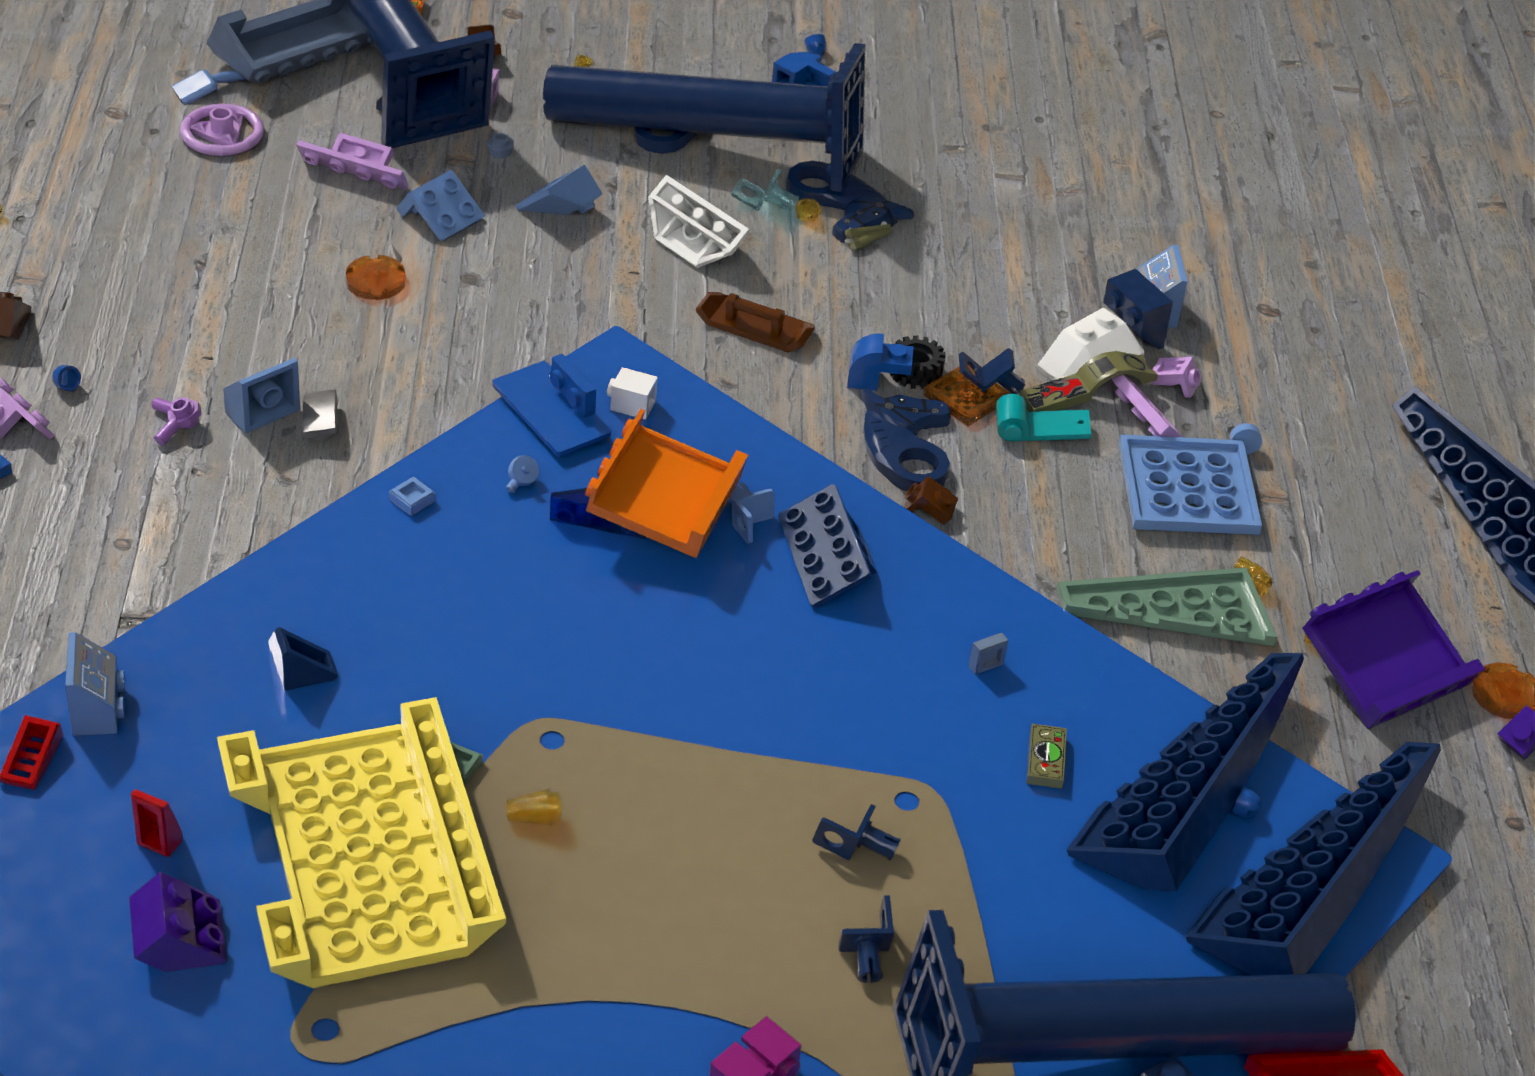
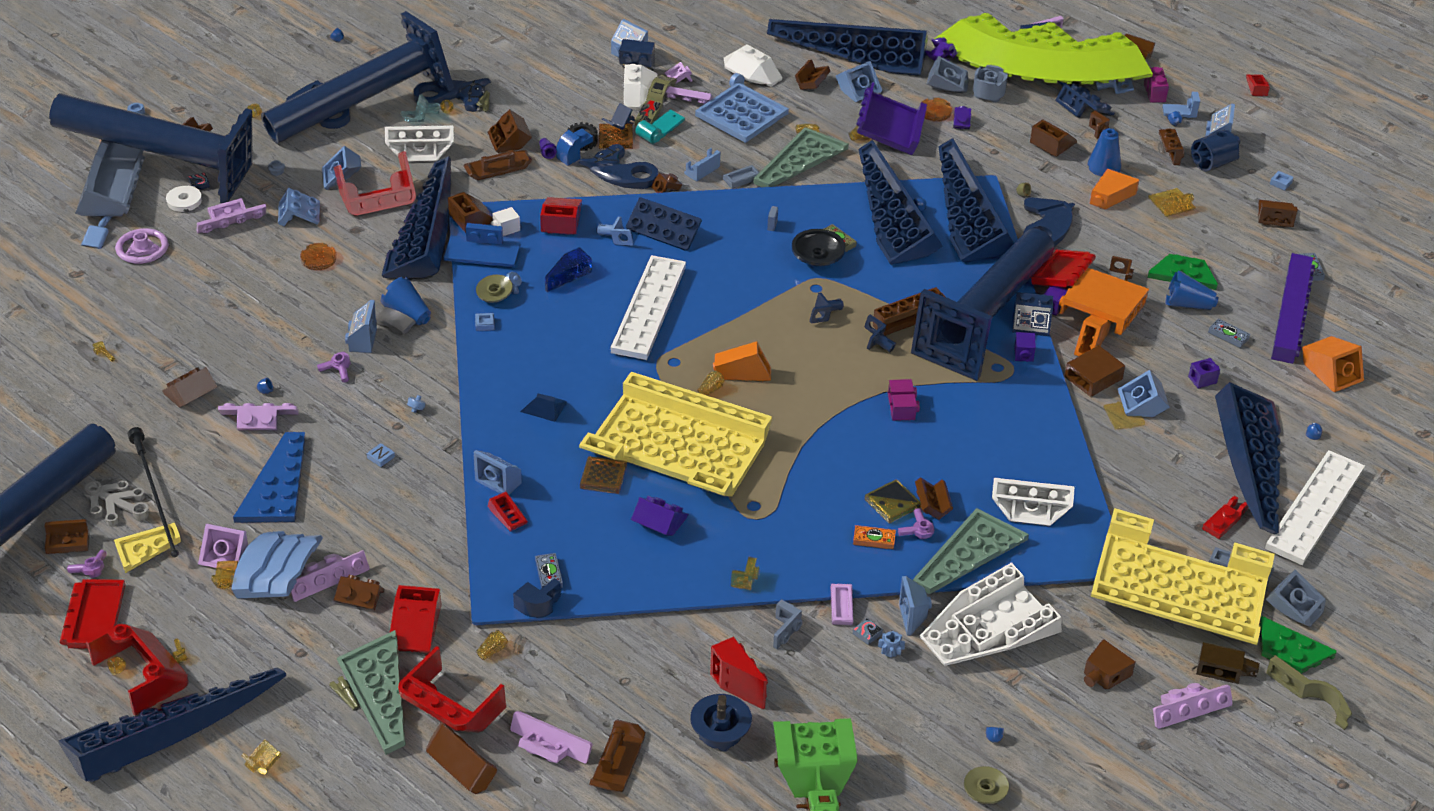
camera: 45 degrees left, 0 degrees up
(40, 560) = (380, 455): none -> medium blue tile
(155, 824) = (600, 491): red slope -> none
(176, 531) = (416, 403): none -> medium blue piece
(210, 813) = (603, 475): none -> clear orange tile
(349, 110) = (183, 198): none -> white tile
(362, 397) = (405, 299): none -> blue cone
(481, 462) = (494, 288): none -> olive dish
(497, 348) = (425, 229): none -> dark blue wedge
(518, 245) = (399, 194): none -> windscreen
(607, 344) = (468, 209): none -> reddish brown slope
(616, 818) = (743, 363): none -> orange slope
(629, 639) = (648, 307): none -> white plate
(663, 487) = (587, 242): orange panel -> none
(716, 427) = (560, 215): none -> red slope
(802, 69) = (353, 48): blue brick -> none
(828, 292) = (509, 133): none -> reddish brown slope
(842, 344) = (547, 148): none -> dark purple cone
(980, 741) = (818, 247): none -> black dish
(984, 945) = (900, 313): none -> reddish brown brick
(1019, 517) = (704, 166): none -> medium blue hinge
(1052, 568) = (741, 176): none -> sand blue tile
(1298, 436) = (753, 65): none -> white wedge
(1370, 505) = (810, 76): none -> reddish brown bracket
(1441, 562) = (857, 79): none -> medium blue slope
(1462, 999) = (1055, 216): none -> dark blue animal
(1476, 914) = (1023, 189): none -> olive hinge

